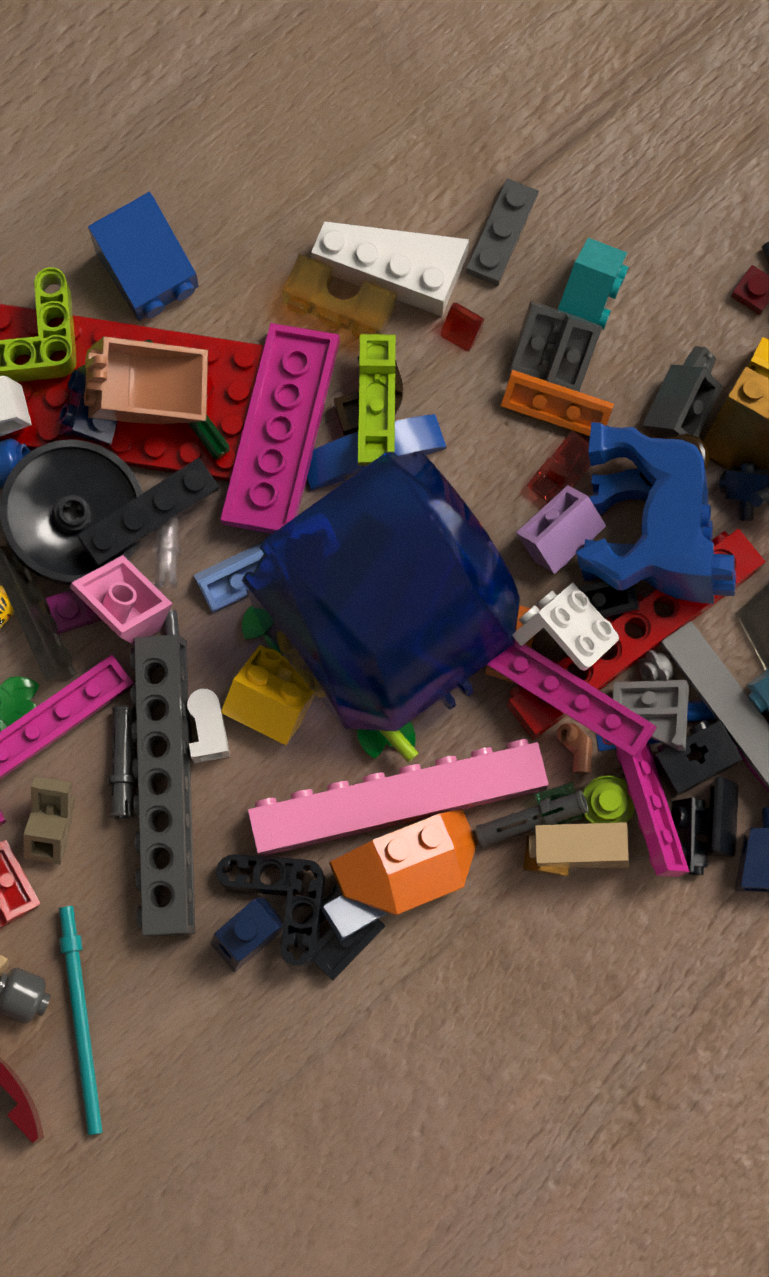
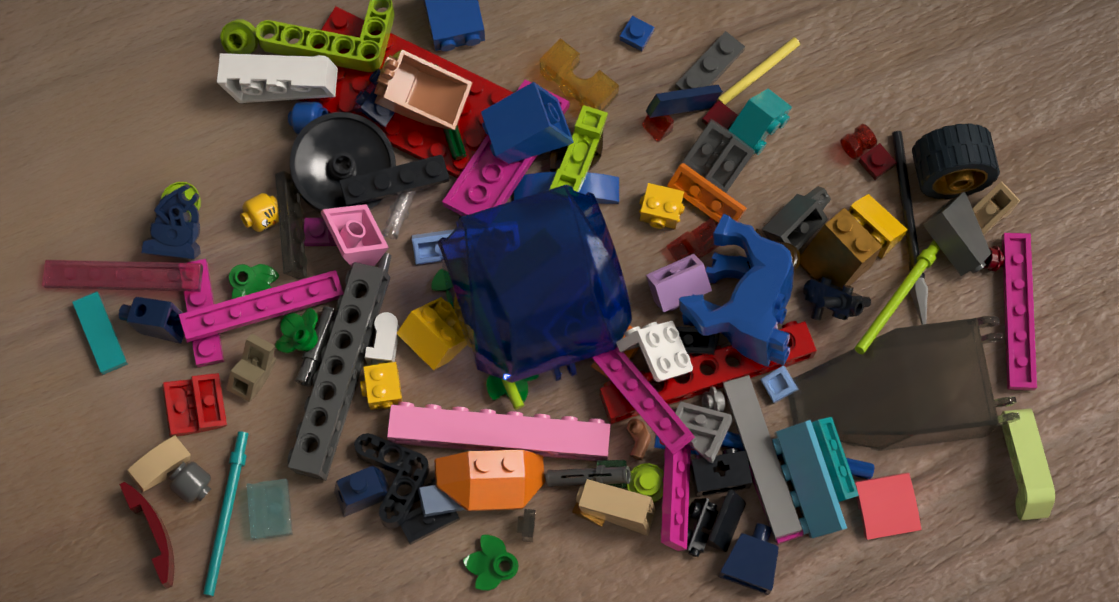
camera: 20 degrees right, 5 degrees down
(91, 752) = (298, 332): none -> green plate
(136, 996) = (269, 509): none -> clear light blue plate
(225, 787) = (381, 385): none -> yellow head
(296, 384) = (526, 124): none -> blue slope
(393, 213) = (637, 33): none -> blue plate
(407, 263) = (633, 67): white wedge -> none
(439, 972) = (487, 562): none -> green plate
(474, 906) = (527, 525): none -> clear smoke plate
(487, 288) = (683, 101): none -> dark blue tile
(504, 435) = (661, 206): none -> yellow head
(539, 291) = (721, 114): none -> dark red tile
(566, 219) = (759, 71): none -> light yellow bar
(725, 271) = (859, 141): none -> clear red wheel
(730, 619) = (779, 384): none -> light blue tile

